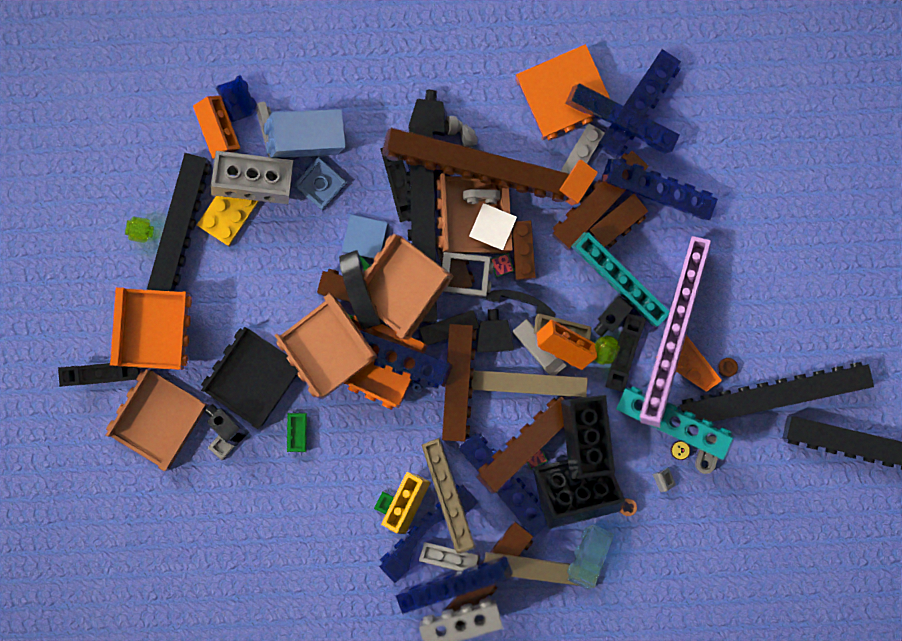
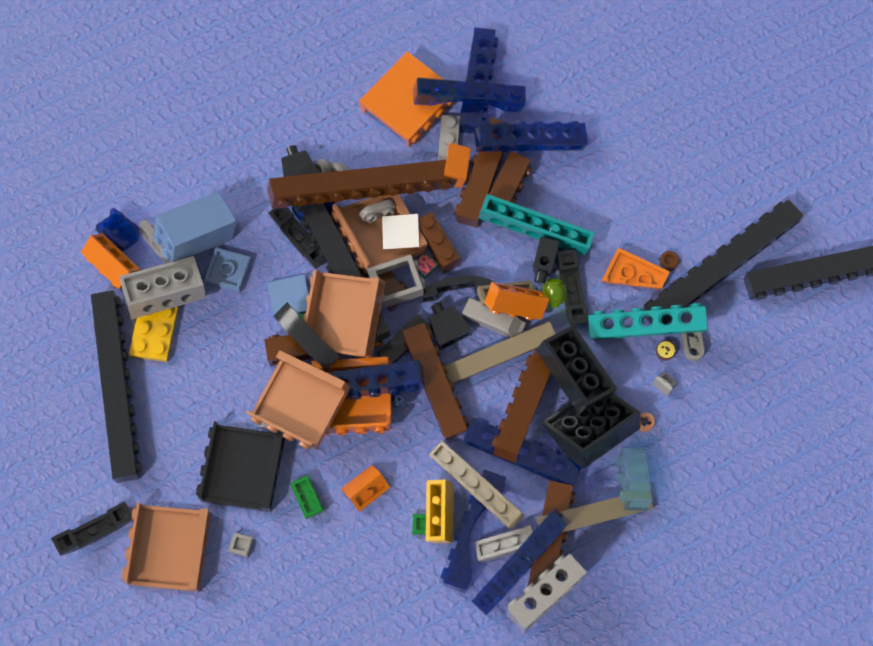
camera: 25 degrees left, 15 degrees down
(139, 229) = (76, 382): clear neon green head -> none
(150, 329) = (126, 462): orange panel -> none
(230, 430) = (237, 519): black torso -> none
(351, 448) = (365, 488): none -> orange panel
(537, 460) = (540, 415): tile -> none
(675, 332) = (607, 246): lavender brick -> none

